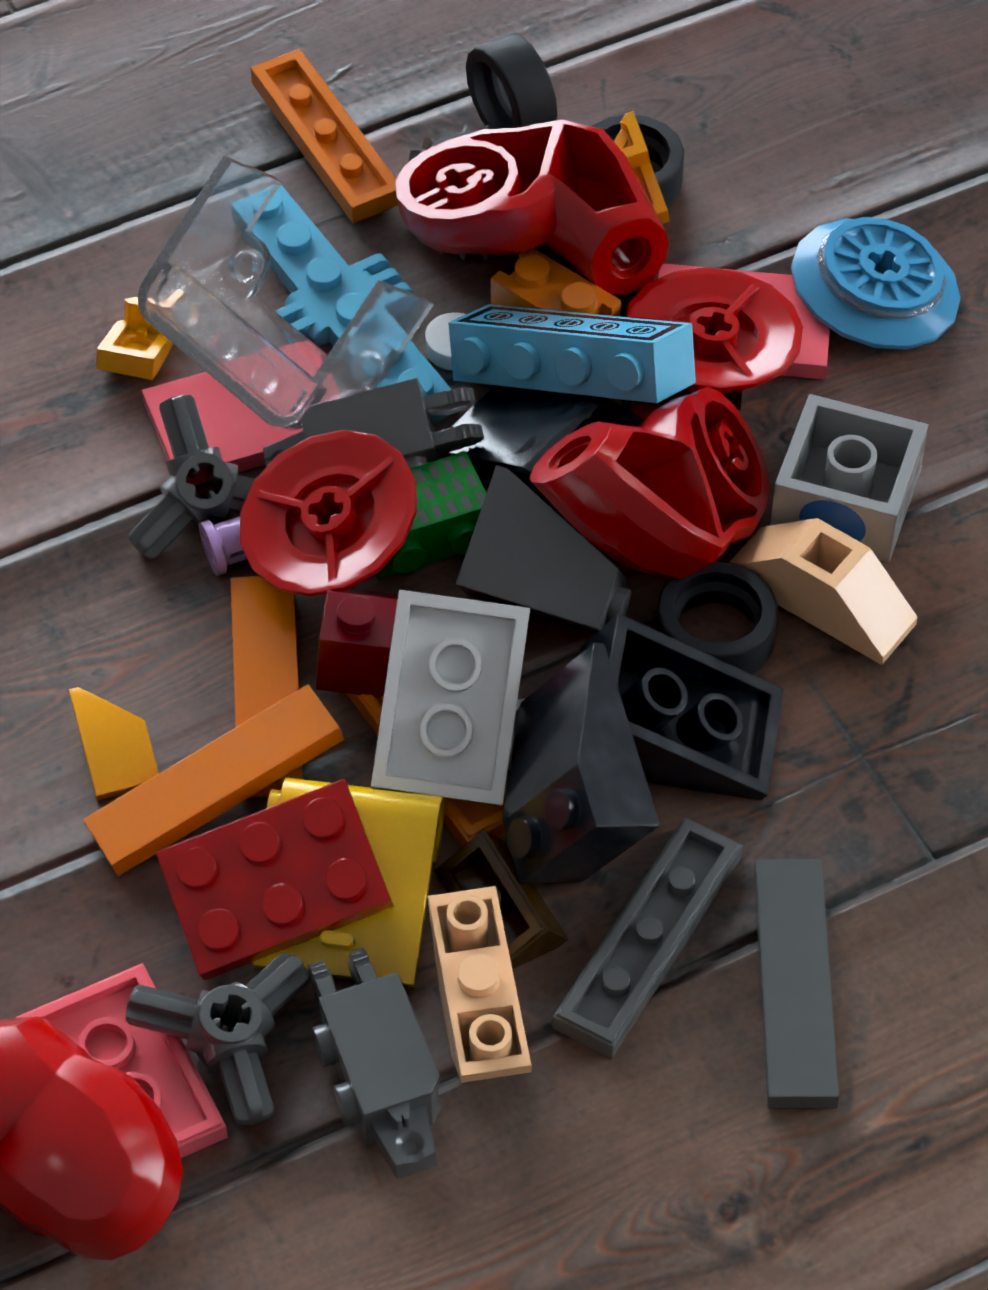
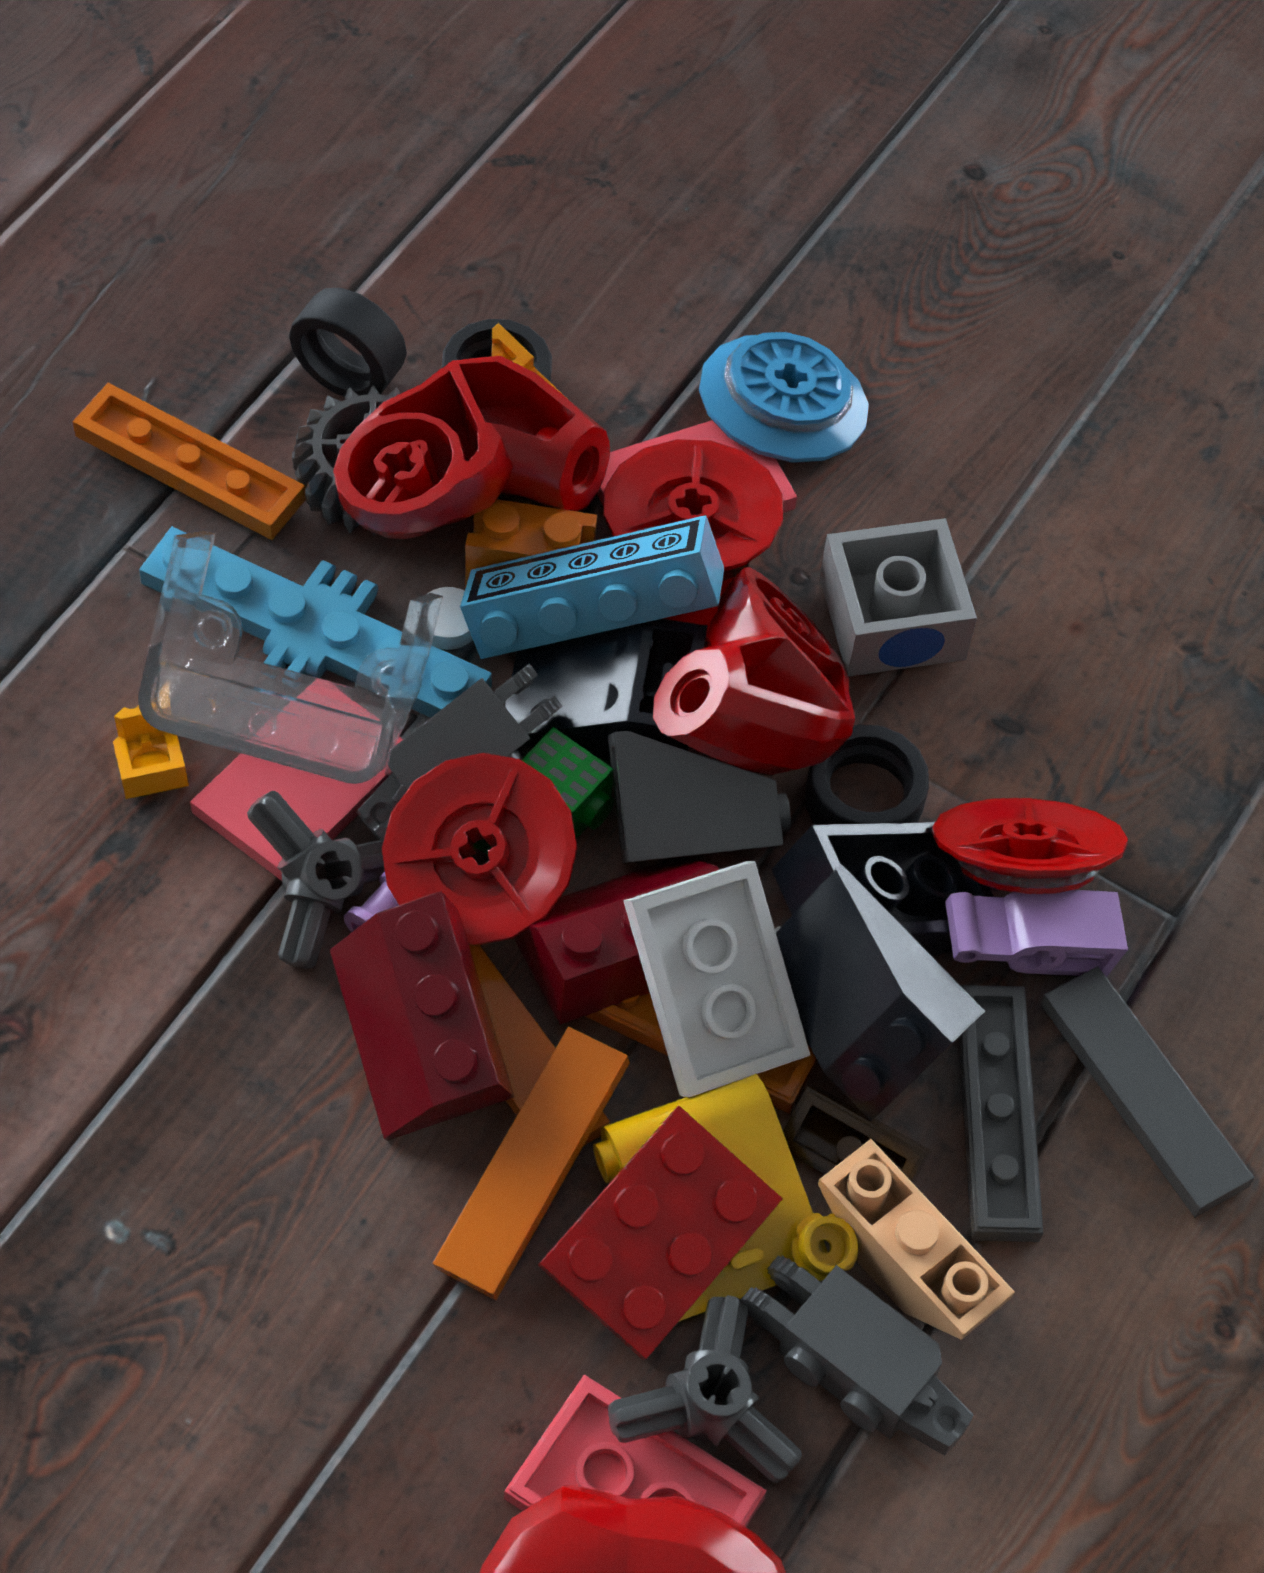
camera: 35 degrees left, 5 degrees up
(114, 745) = (410, 1172): light orange slope -> none
(202, 622) = (420, 1016): none -> dark red slope
(409, 943) = (836, 1232): none -> yellow plate
(780, 800) = (1039, 931): none -> lavender piece
(818, 724) = (1029, 843): none -> red piece
(831, 584) = (942, 704): light nougat slope -> none

